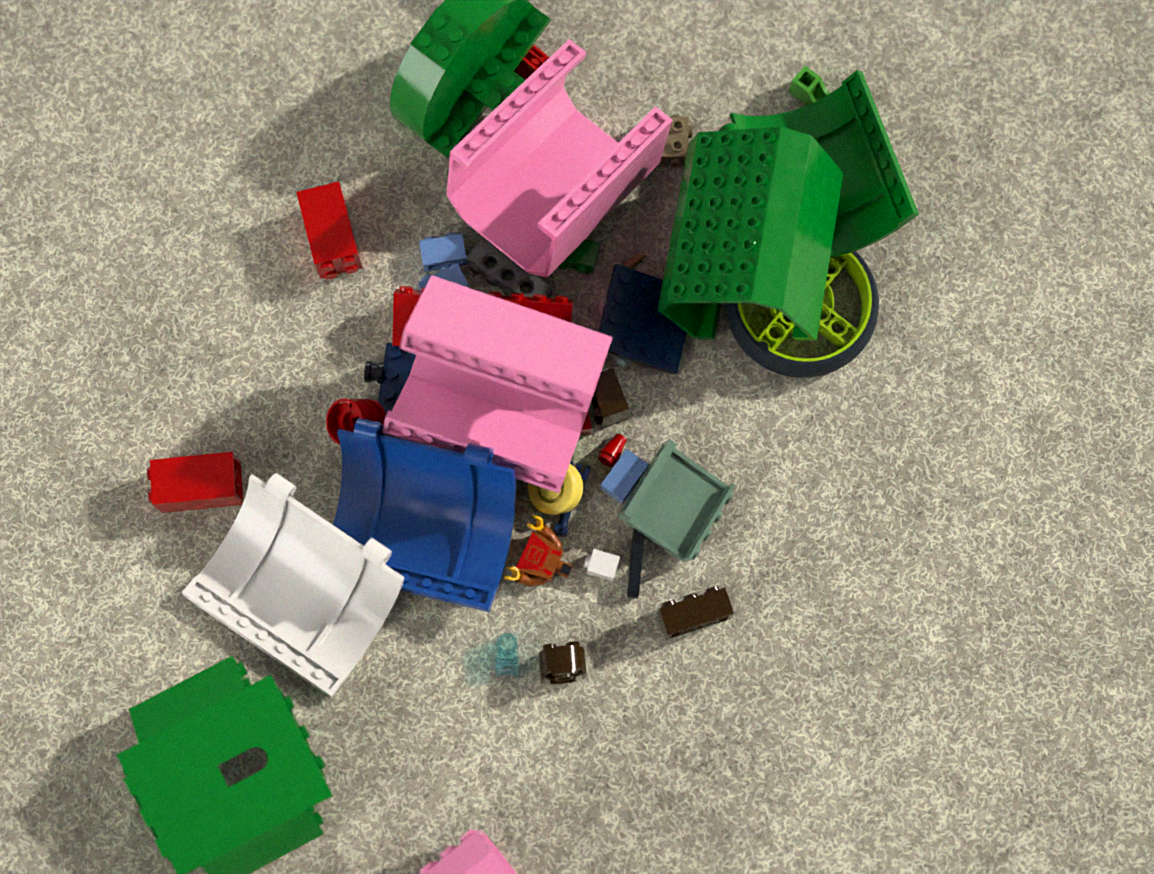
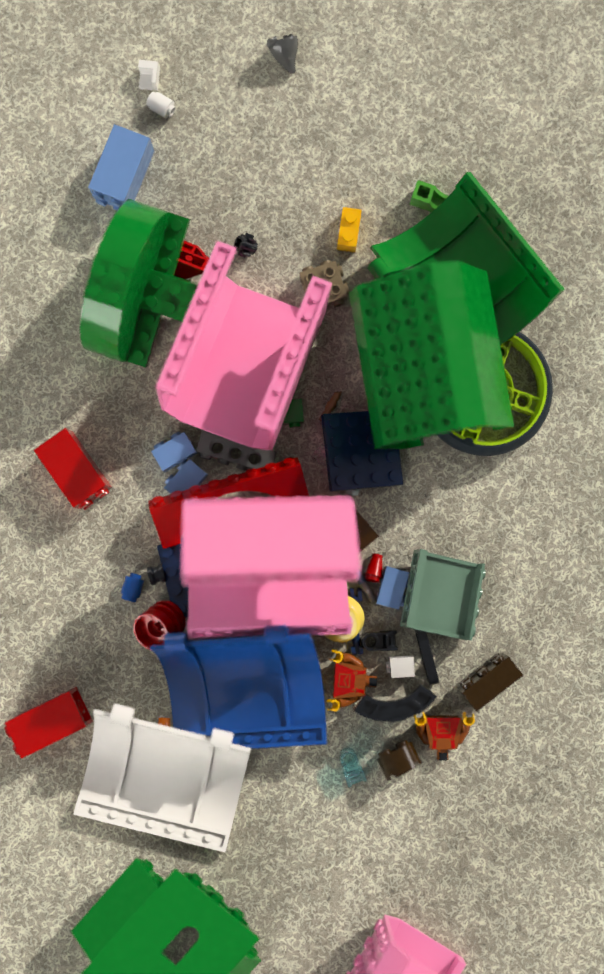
camera: 20 degrees left, 10 degrees up
(343, 376) = (132, 587): none -> blue brick
(580, 602) = (395, 710): none -> black panel
(591, 529) = (383, 640): none -> black piece
(594, 465) = (363, 584): none -> light grey piece
(599, 71) = (245, 245): none -> black gear
(623, 652) = (443, 731): none -> torso
(714, 93) = (349, 229): none -> yellow piece

